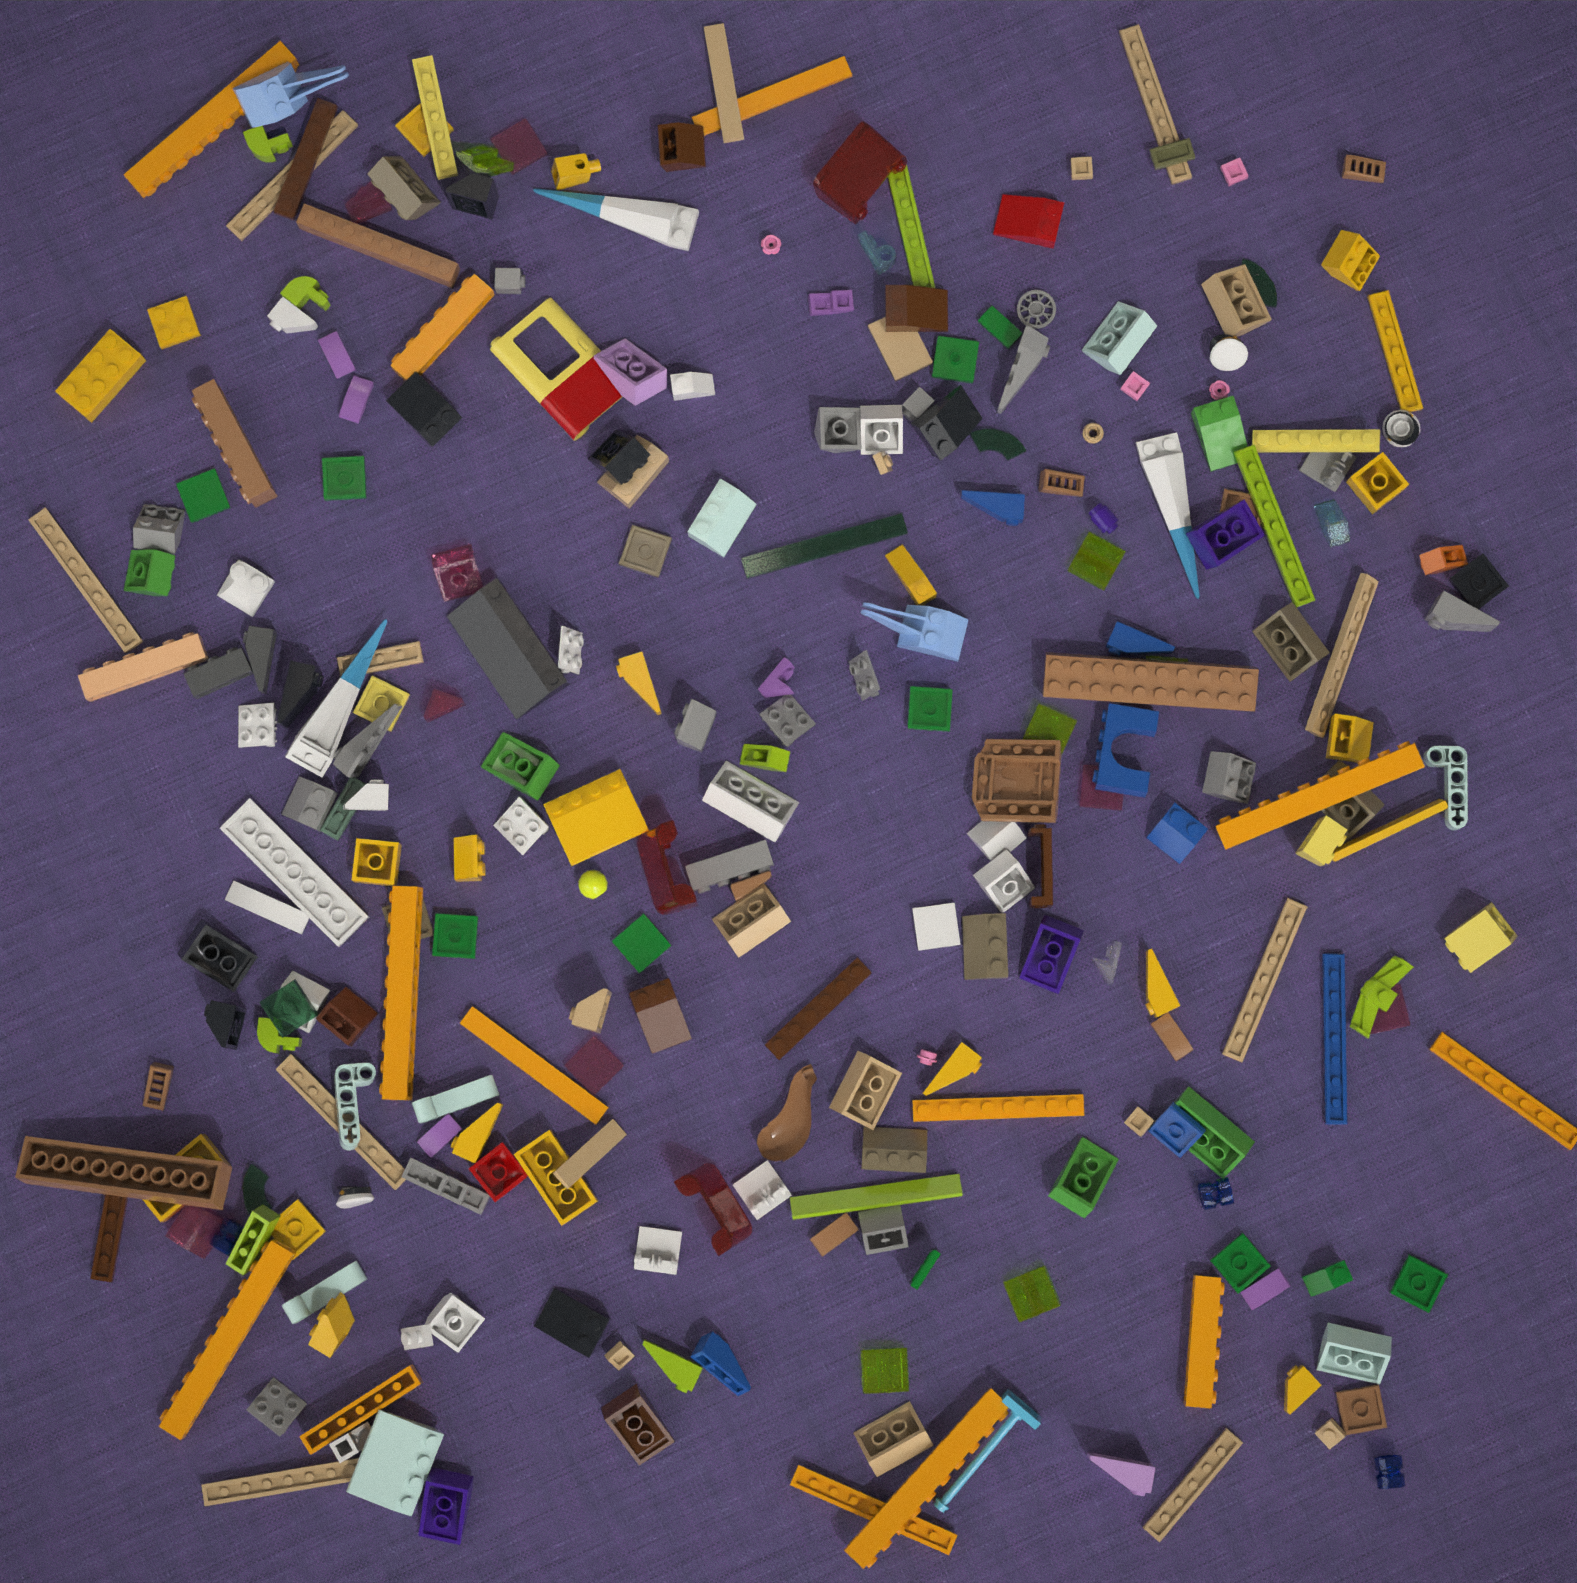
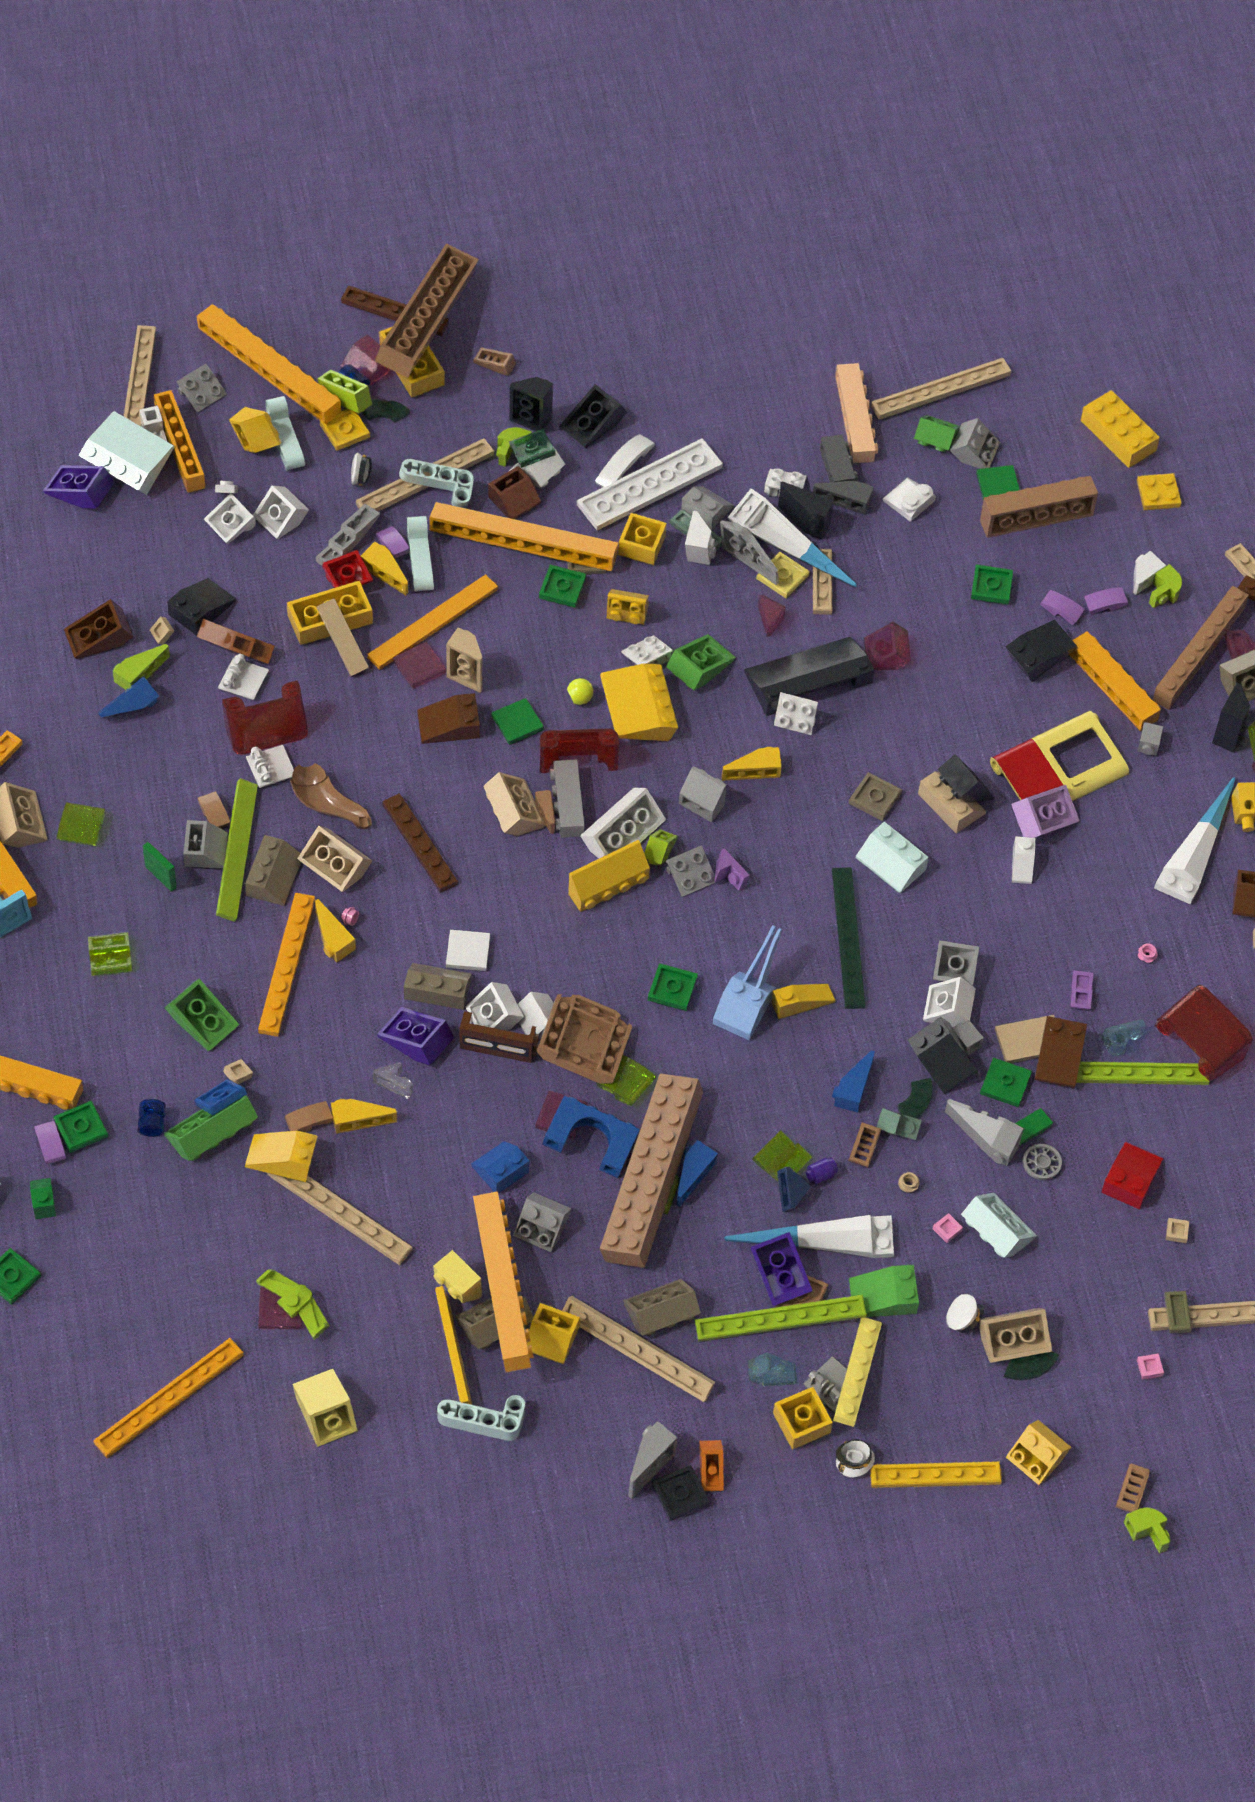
camera: 95 degrees right, 25 degrees down
(429, 1269) = (280, 511): none -> white slope
(619, 1270) = (236, 641): none -> dark orange slope
(820, 800) = (608, 876): none -> yellow slope
(864, 676) = (725, 934): light grey hinge -> none
(883, 462) = (916, 996): tan plate -> none
(1032, 455) = (899, 1124): none -> sand green slope
(1136, 542) = (791, 1188): none -> dark blue slope
(1219, 384) = (928, 1297): bright pink plate -> none
(1225, 1051) = (282, 1153): none -> yellow slope
(1334, 1039) = (265, 1258): blue tile -> none
(1397, 150) = (1148, 1522): none -> lime brick

